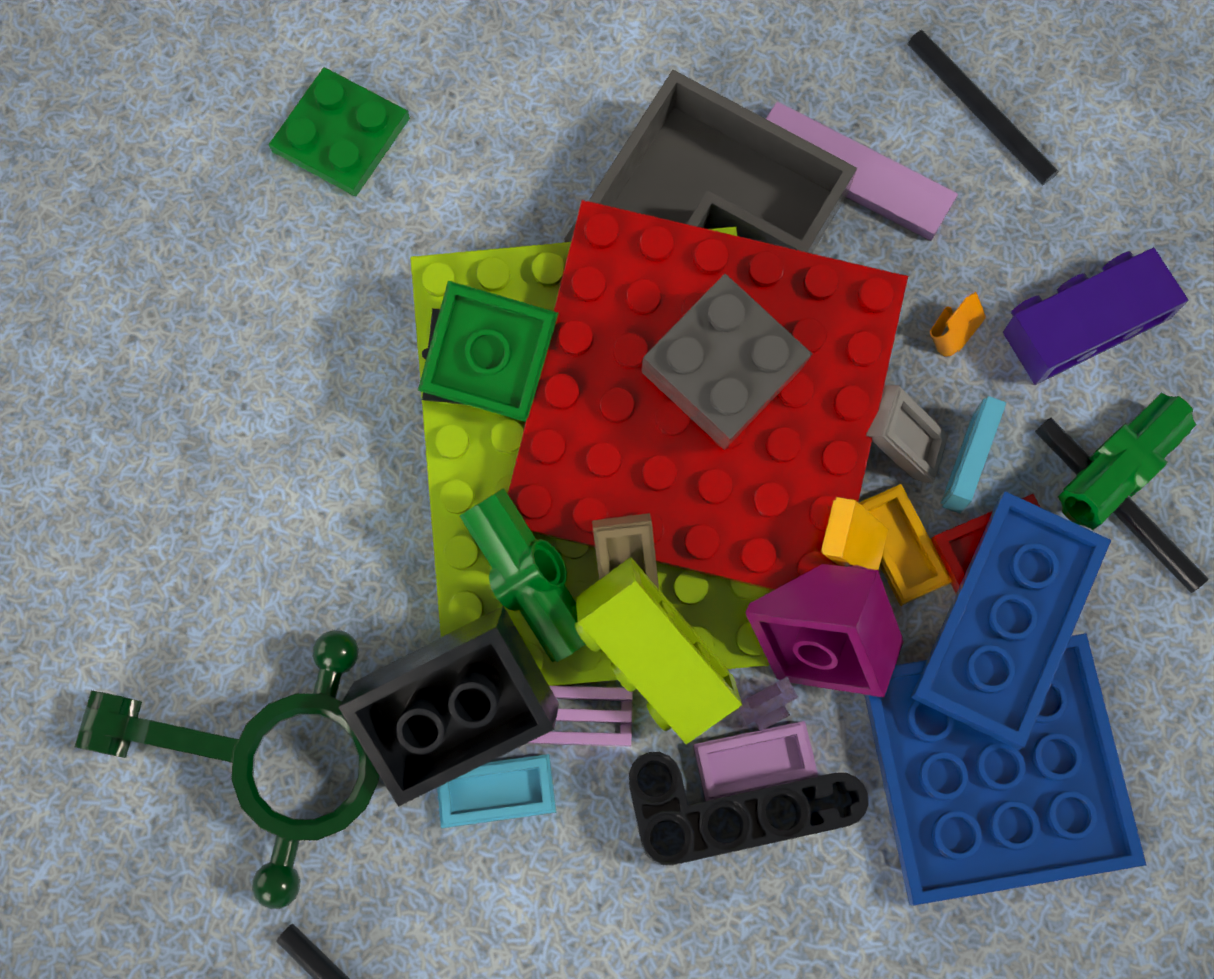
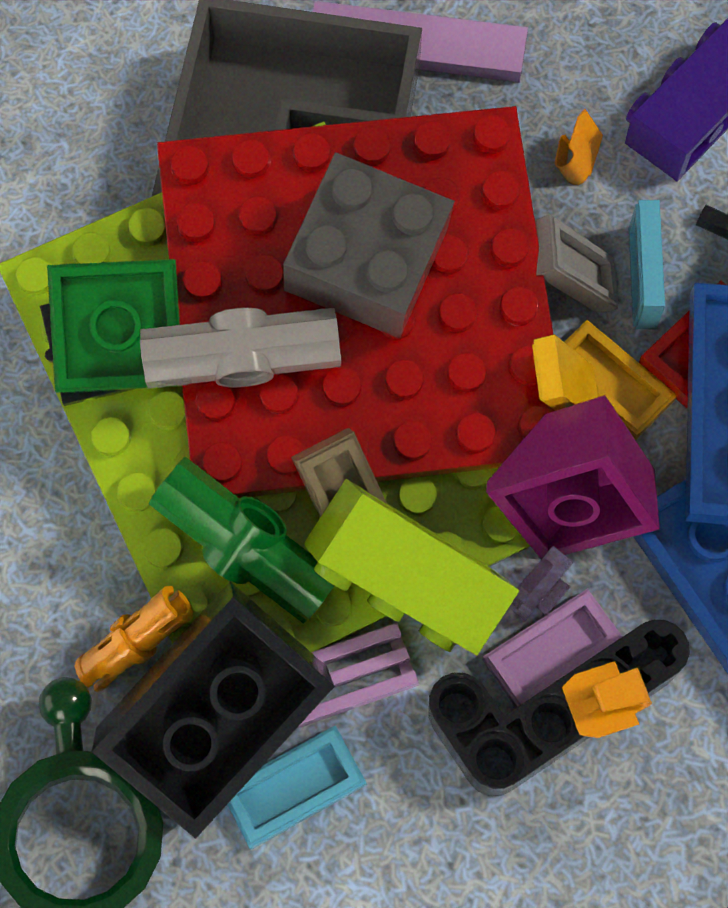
camera: 20 degrees left, 5 degrees down
(410, 619) = (133, 638): none -> light orange pin
(583, 412) = (240, 347): none -> light grey piece
(777, 825) = (605, 699): none -> light orange piece

